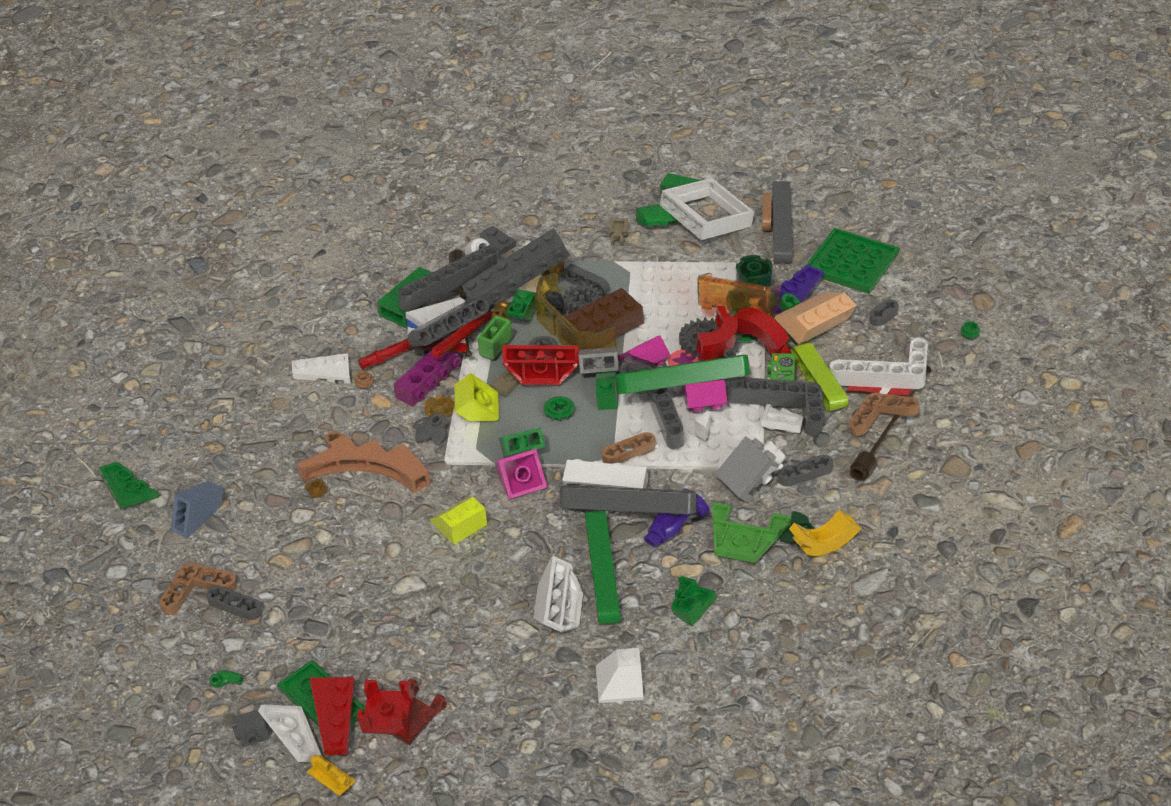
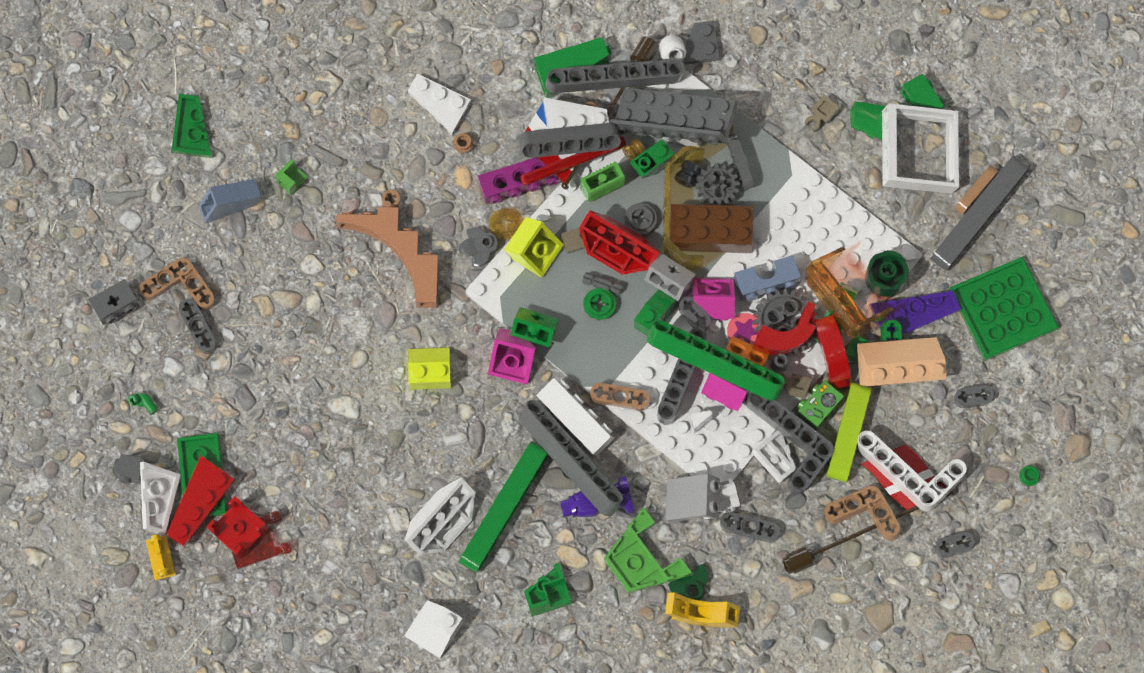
camera: 30 degrees right, 30 degrees up
(144, 625) = (121, 295): none -> dark grey brick
(237, 472) = (290, 177): none -> bright green panel
(316, 488) = (340, 251): pearl gold plate -> none
(378, 357) = (500, 123): red pin -> none
(544, 396) = (600, 282): none -> dark grey axle
(677, 315) = (751, 286): none -> sand blue arch
(757, 368) = (796, 385): none -> dark tan plate
(966, 397) = (956, 549): none -> dark grey beam

